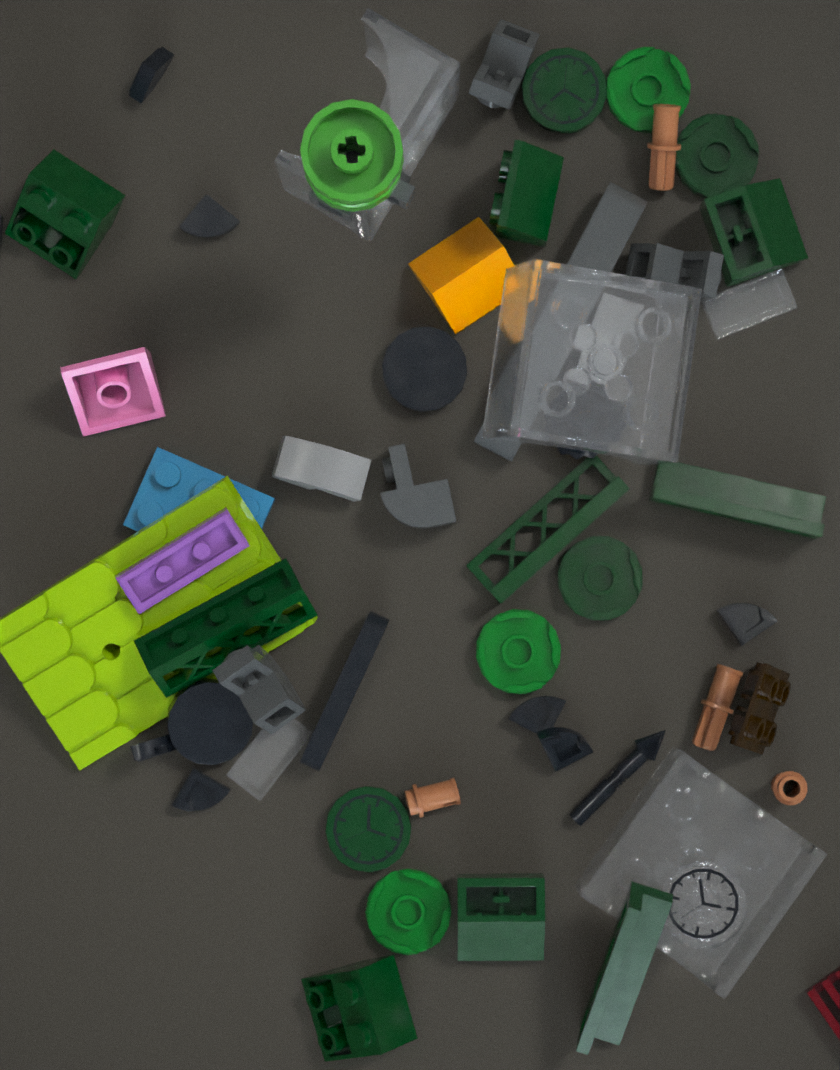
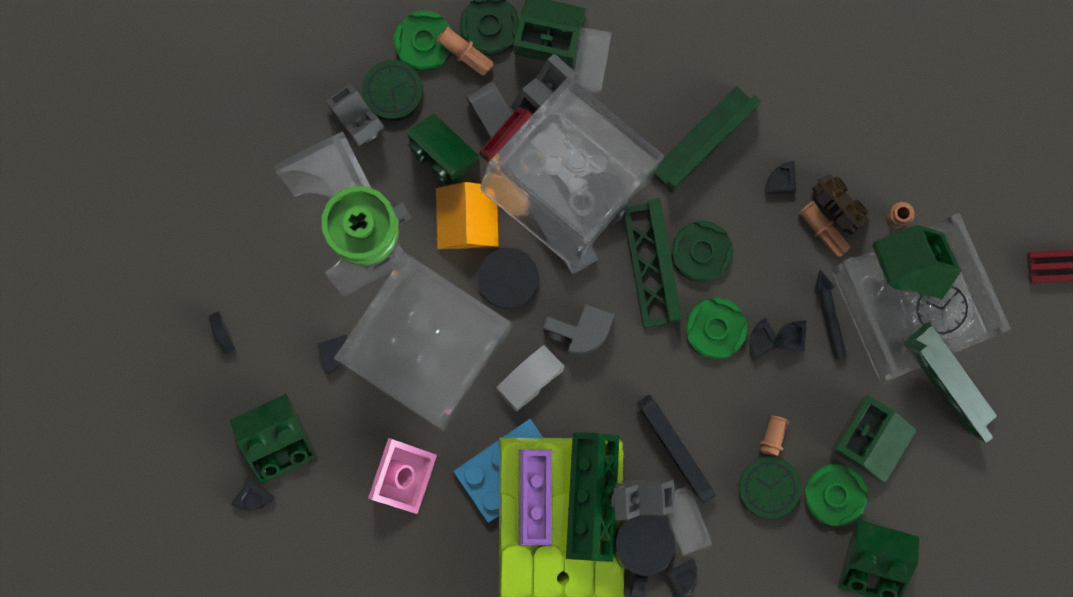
camera: 60 degrees left, 5 degrees down
(280, 316) = (423, 341): none -> clear container
(590, 257) = (505, 133): none -> dark red tile
(739, 840) = (918, 261): none -> dark green slope

